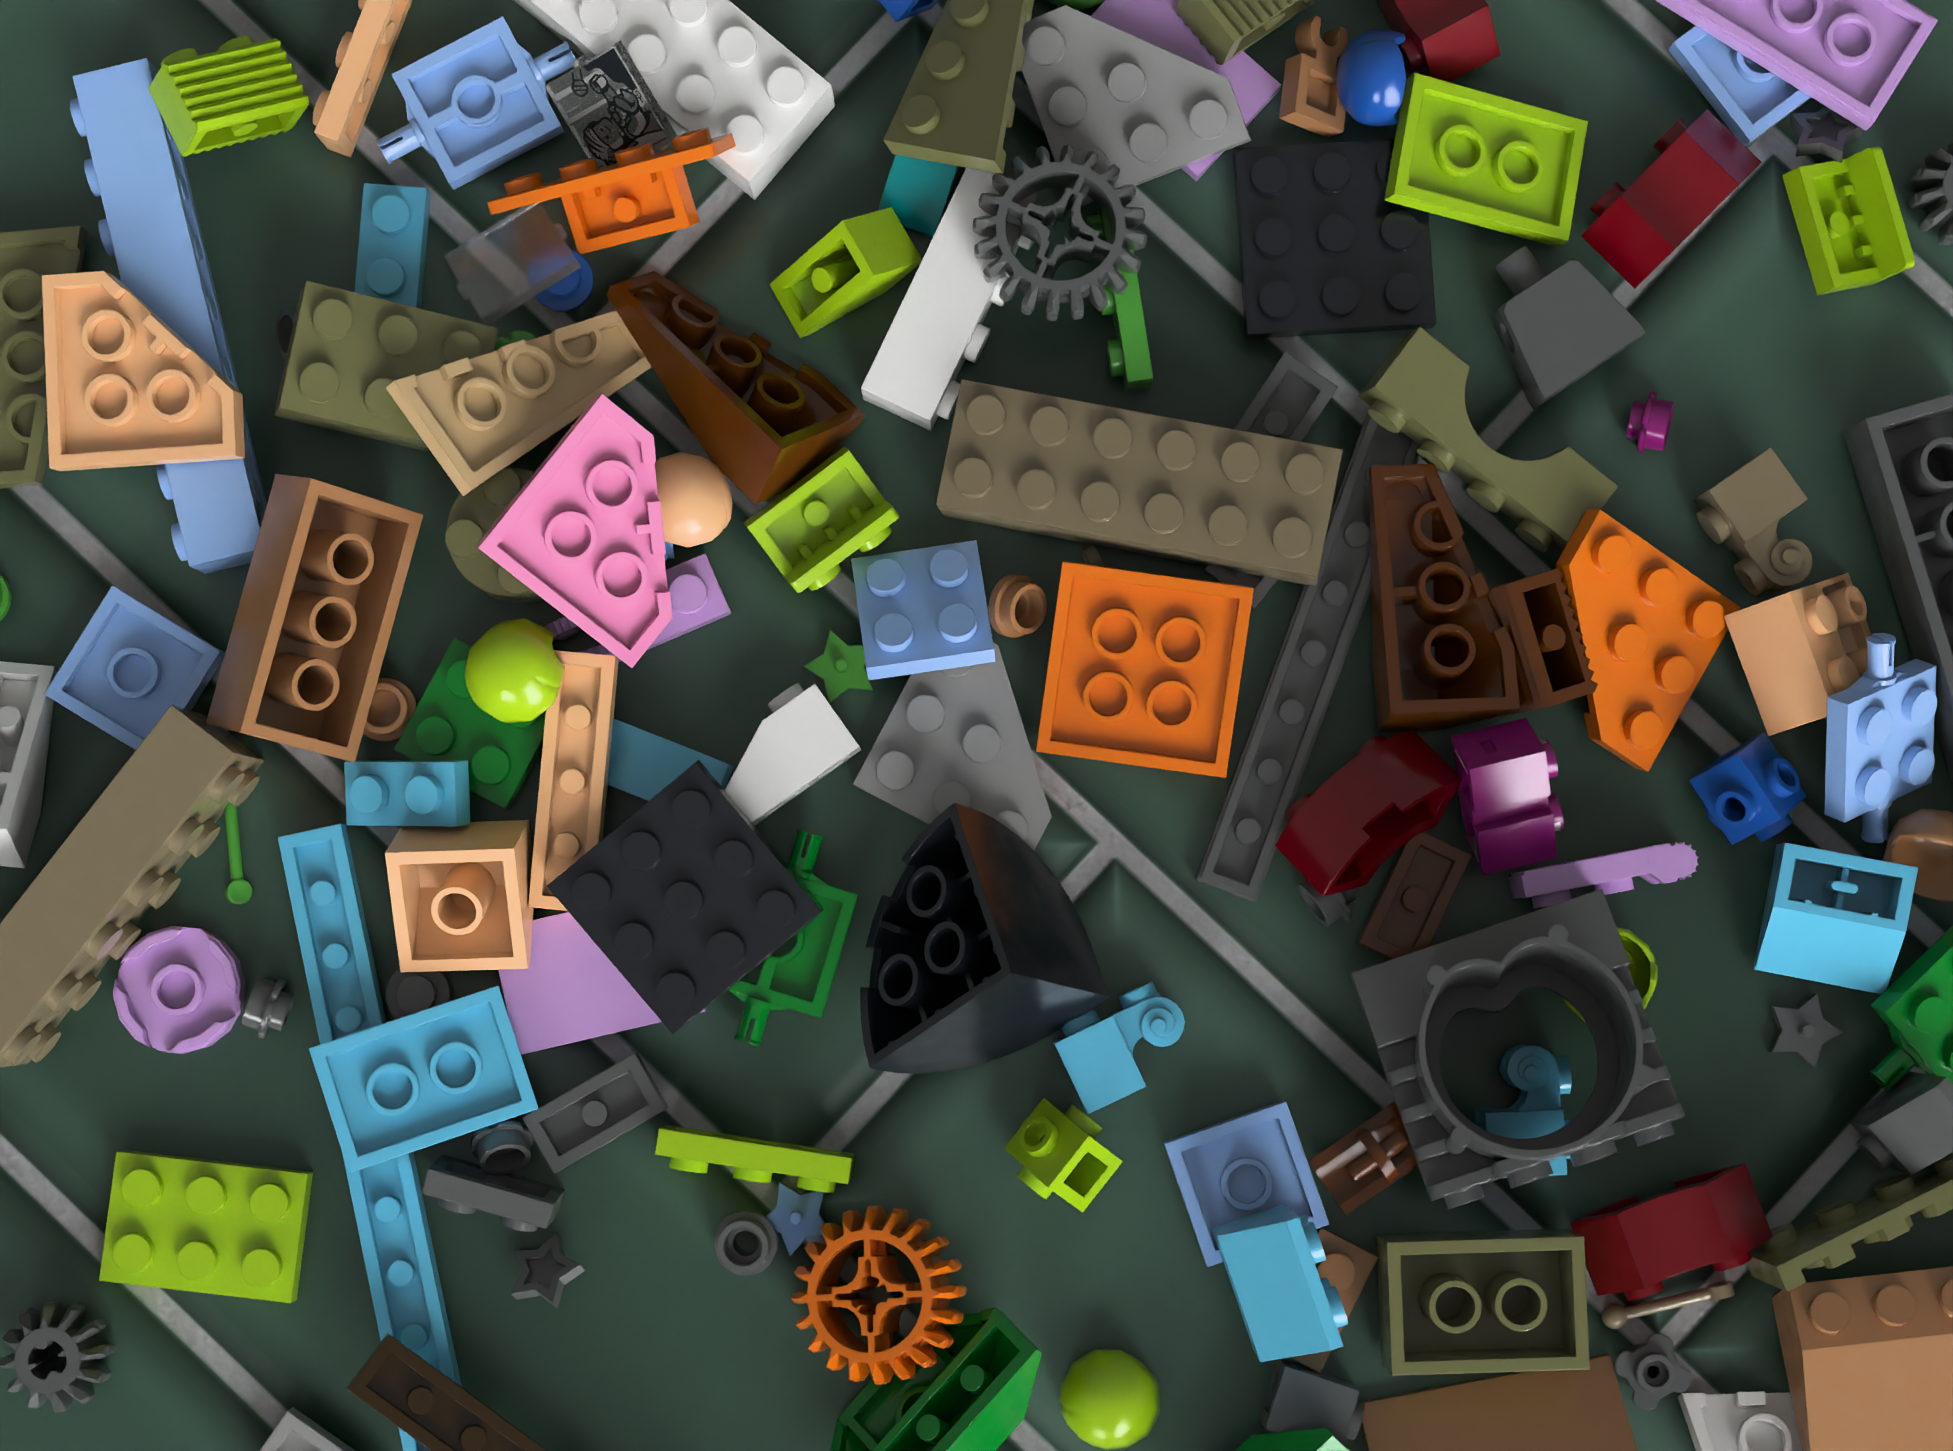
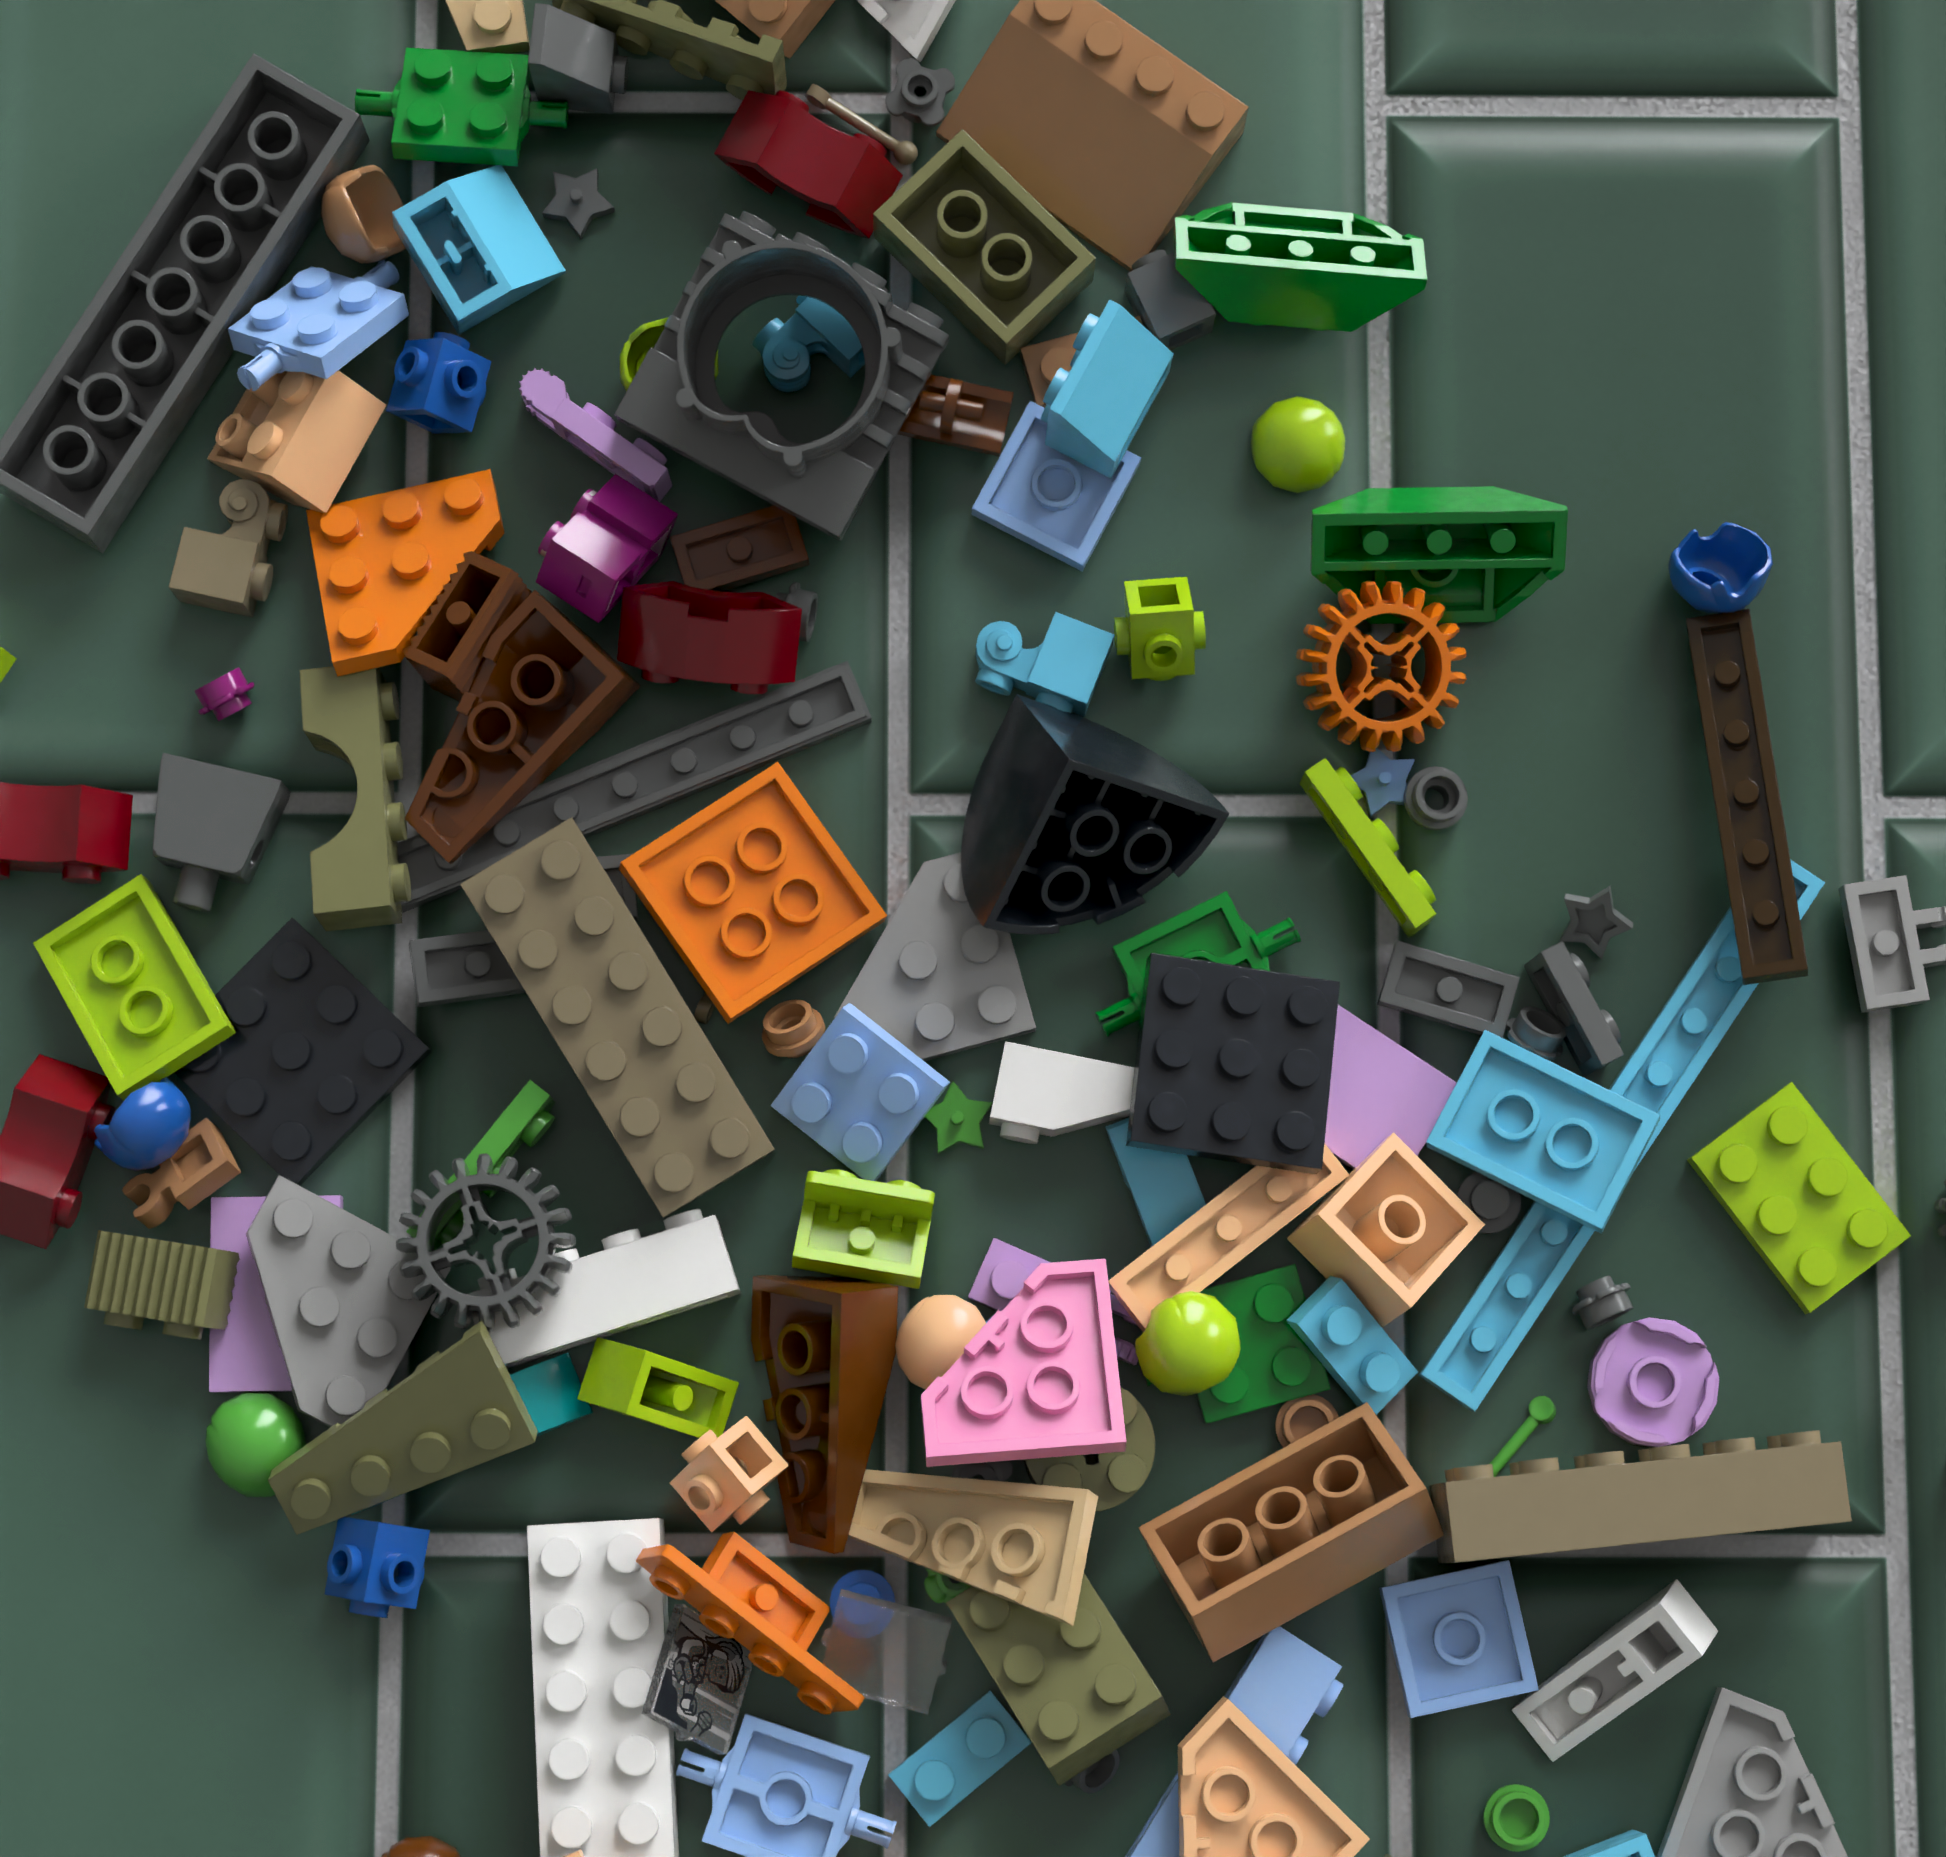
camera: 135 degrees left, 5 degrees down
(737, 263) = (728, 1474): none -> light nougat brick

